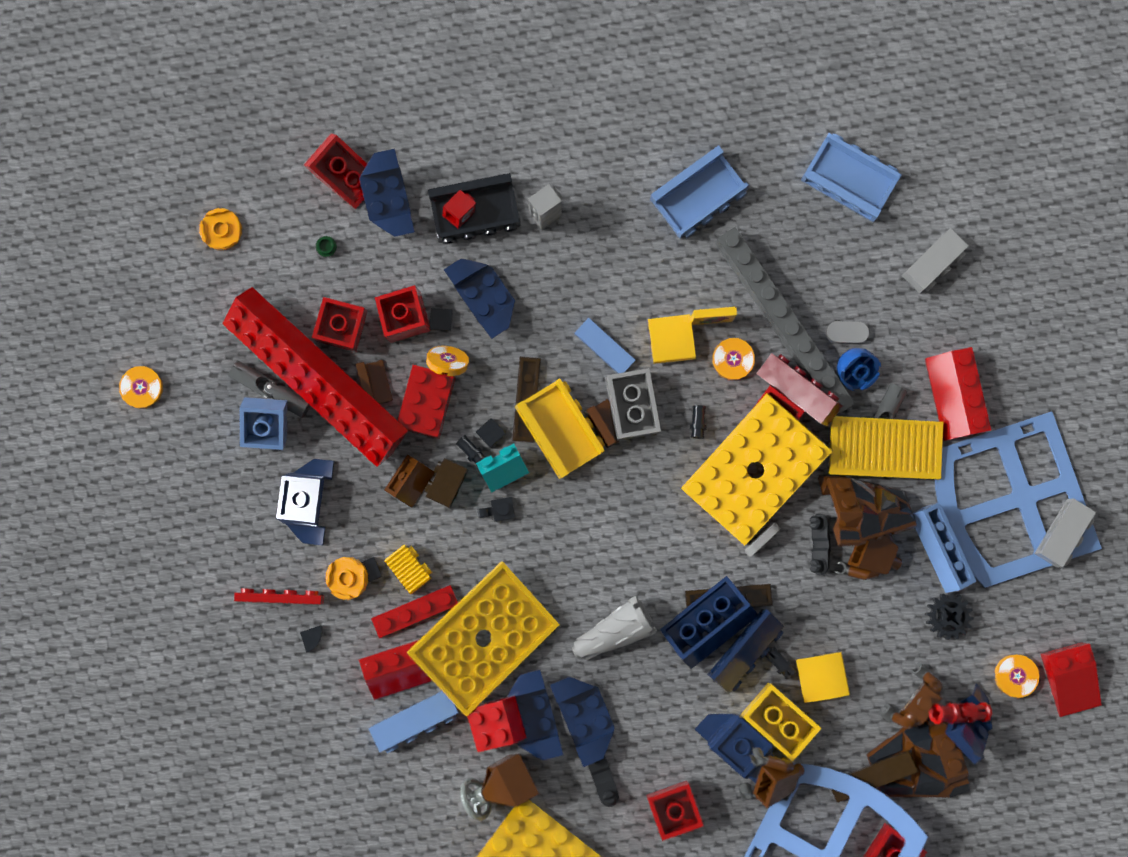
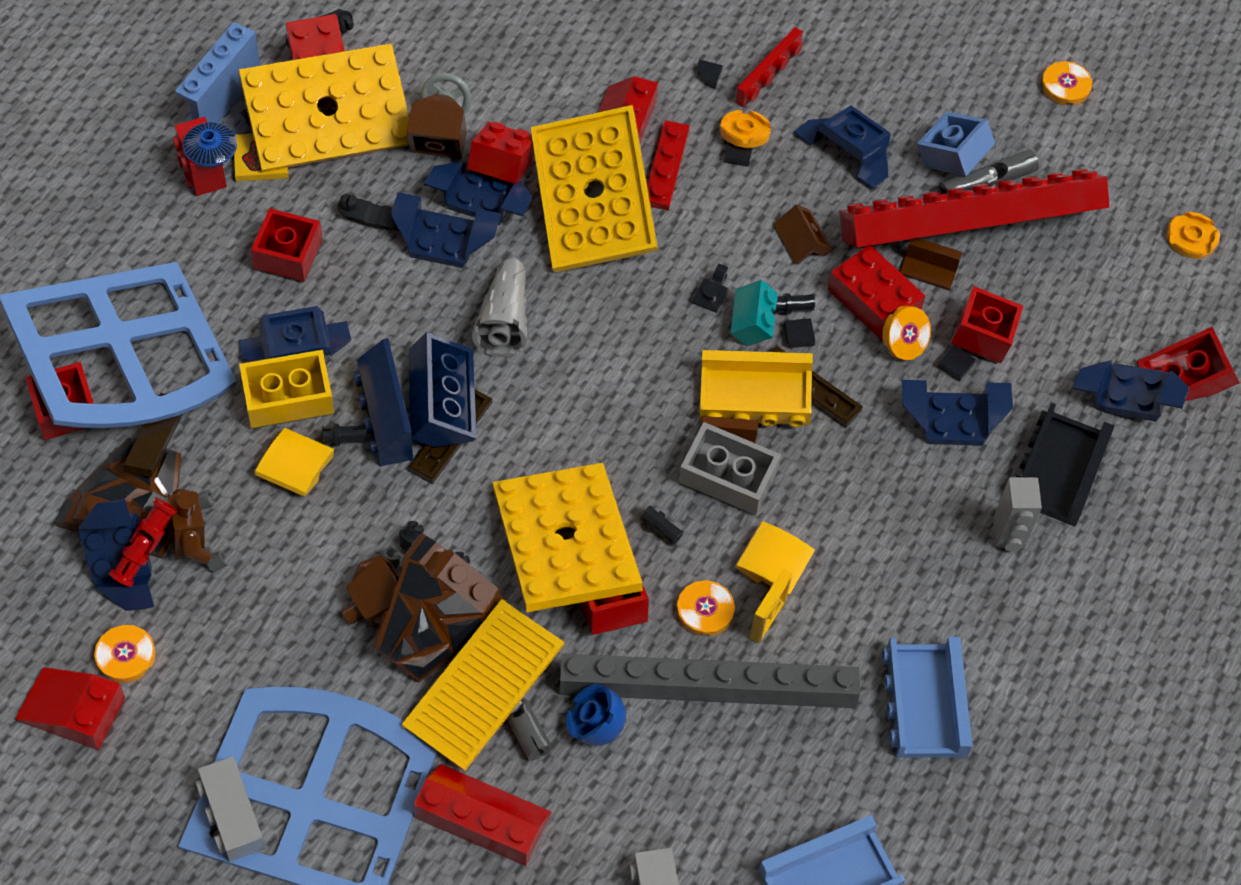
camera: 120 degrees right, 25 degrees down
(326, 246) = (1111, 310): dark green plate -> none
(339, 324) = (1015, 265): red brick -> none
(408, 568) = (713, 180): yellow brick -> none
(412, 721) = (564, 87): medium blue brick -> none
(446, 482) = (776, 260): dark brown brick -> none
(459, 209) = (1071, 443): red brick -> none
(604, 346) = (814, 492): medium blue tile -> none
(762, 539) = (485, 499): light grey tile -> none
(775, 779) = (236, 338): reddish brown torso -> none
(799, 389) = (619, 632): brick -> none
(847, 332) = (646, 746): light grey tile -> none
(943, 548) = (326, 665): medium blue brick -> none
(956, 610) = (235, 620): black gear -> none

